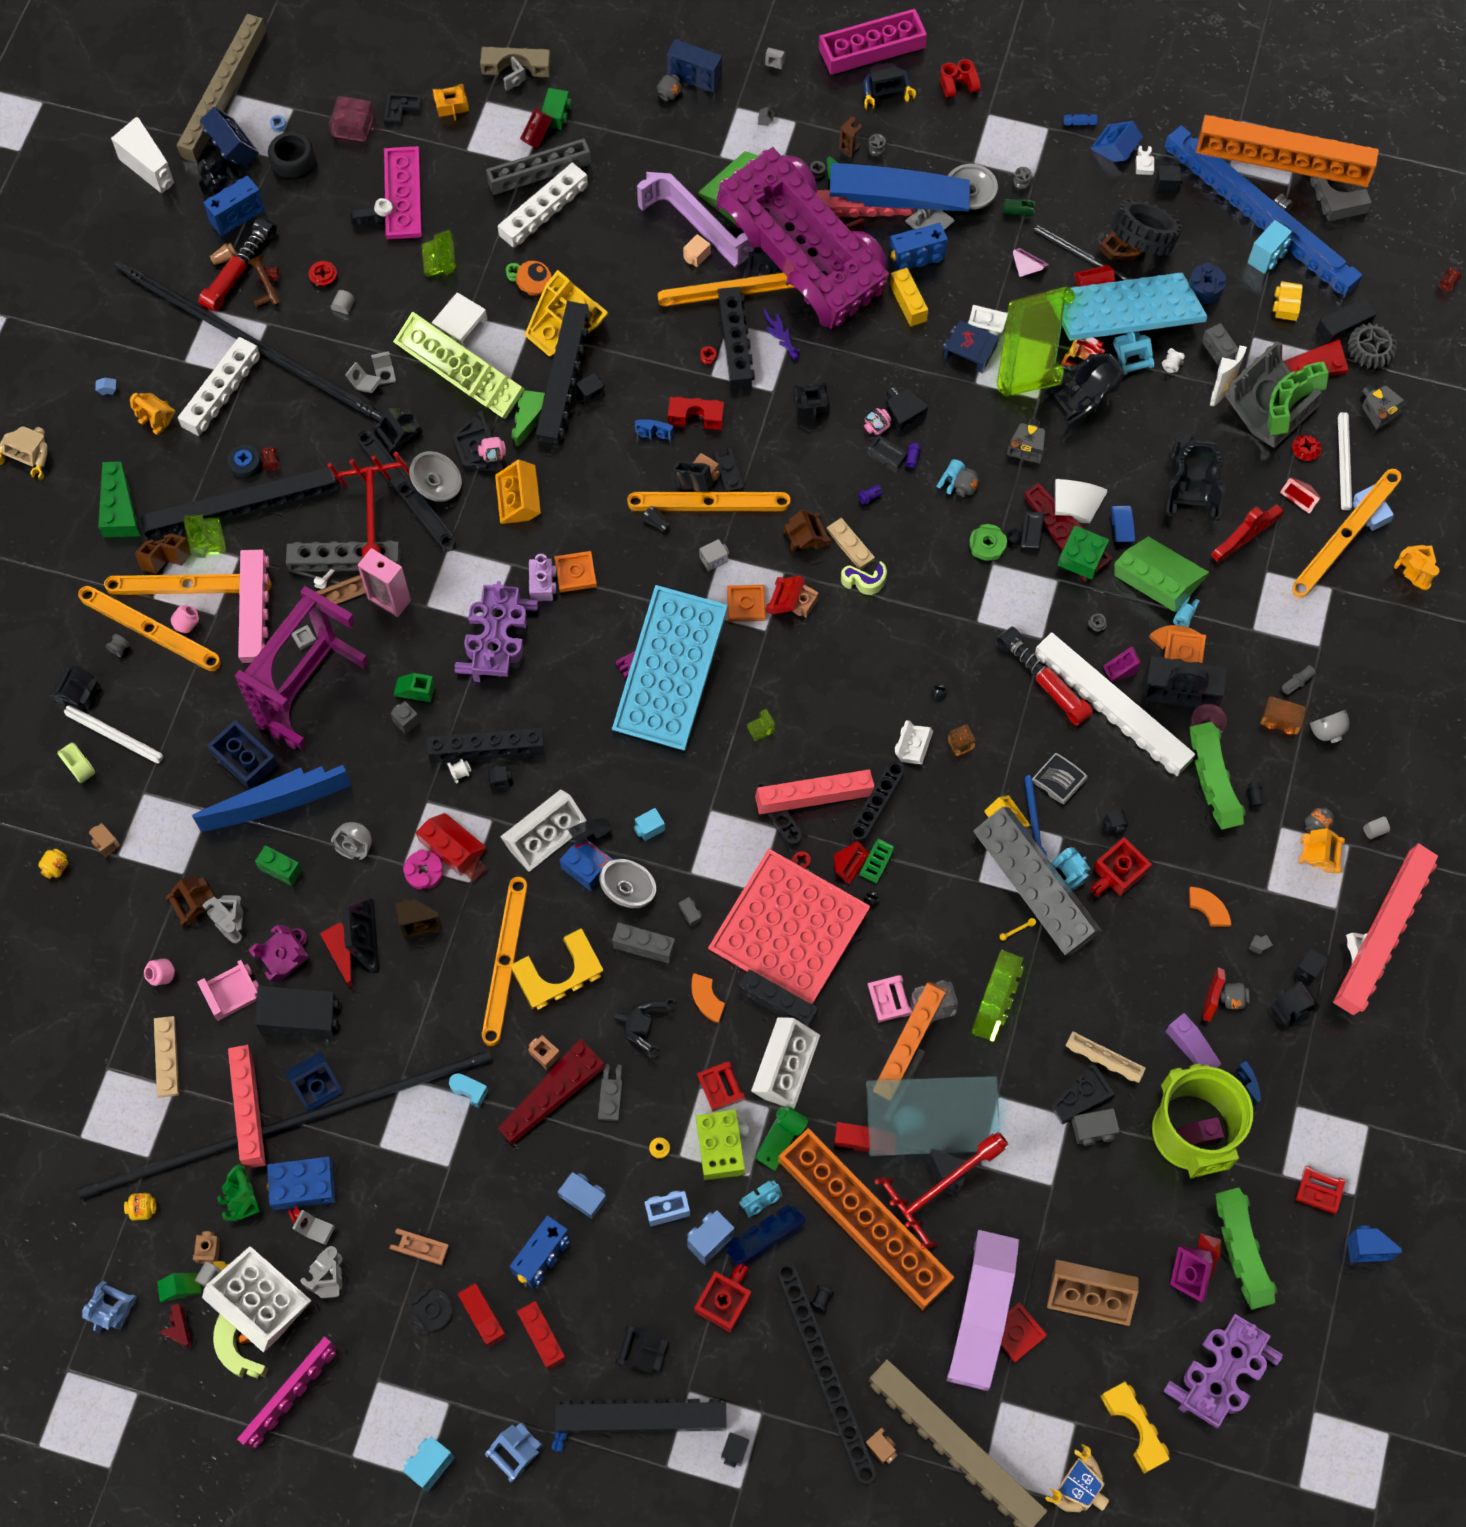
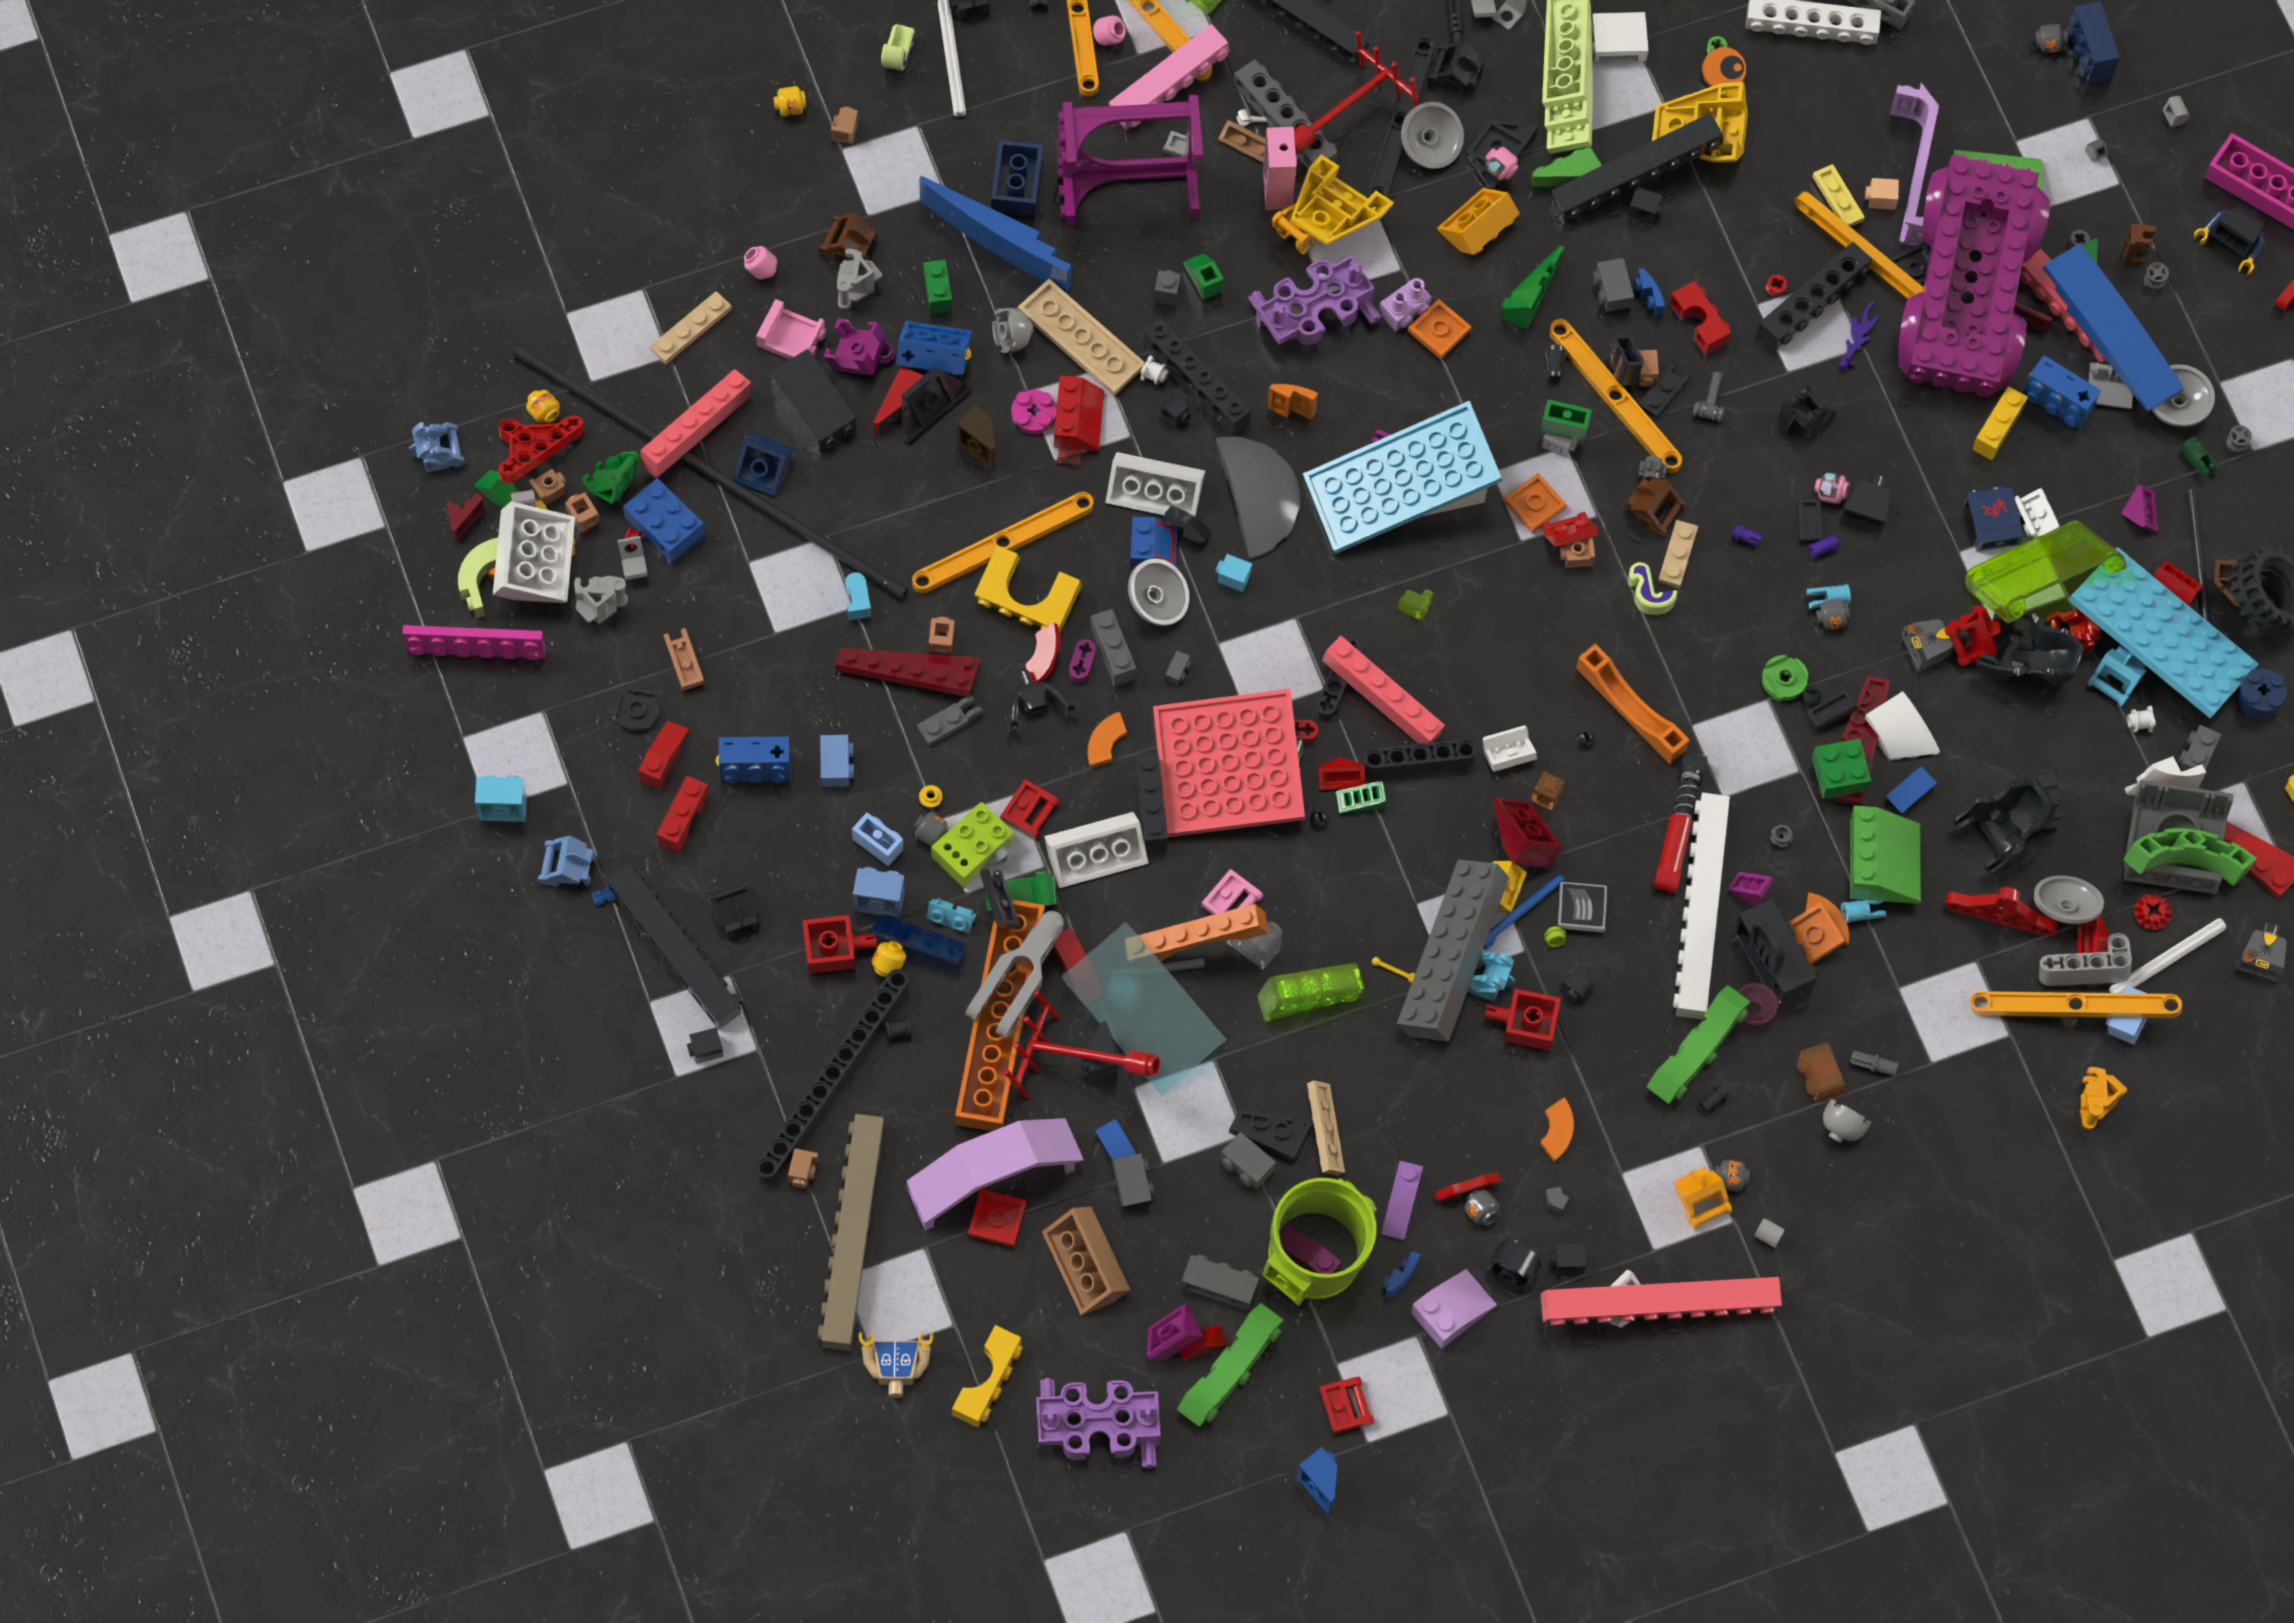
camera: 50 degrees right, 0 degrees up
(164, 1225) = (540, 436): none -> red beam
(255, 1237) = (589, 515): none -> nougat brick
(325, 900) = (934, 346): none -> blue piece
(394, 798) = (1081, 337): none -> tan plate
(433, 600) = (1285, 228): none -> light orange piece
(439, 572) = (1332, 208): none -> yellow wedge
(556, 694) = (1288, 398): none -> orange slope
(599, 501) = (1527, 296): none -> green wedge
(602, 764) = (1262, 490): none -> dark grey brick
(614, 991) = (1045, 654): none -> tile
(632, 445) = (1614, 285): none -> dark grey brick
(639, 968) = (1077, 659): none -> magenta beam
(675, 276) = (1838, 195): none -> light yellow plate
(686, 1165) = (930, 828): none -> dark grey head
(711, 538) = (1566, 420): none -> green brick
(763, 454) = (1708, 409): none -> dark grey piece
(765, 1267) = (888, 958): none -> yellow head
(780, 515) = (1652, 468): none -> dark grey gear
(783, 1155) = (999, 899): none -> black hinge
(841, 1159) = (1035, 949): none -> light grey piece
(905, 647) = (1659, 732): none -> orange arch
(984, 775) = (1525, 833): none -> dark red slope
(1020, 1208) = (1114, 1140): none -> blue slope
(1049, 408) = (1981, 631): none -> red piece
(1055, 1216) = (1132, 1179): none -> dark grey brick
(1069, 810) = (1555, 937): none -> lime plate
(1172, 1210) = (1220, 1282): none -> dark grey brick
(1269, 487) = (2068, 899): none -> light grey dish
(1295, 1067) = (1452, 1307): none -> lavender slope
(1310, 527) = (2089, 968): none -> light grey beam

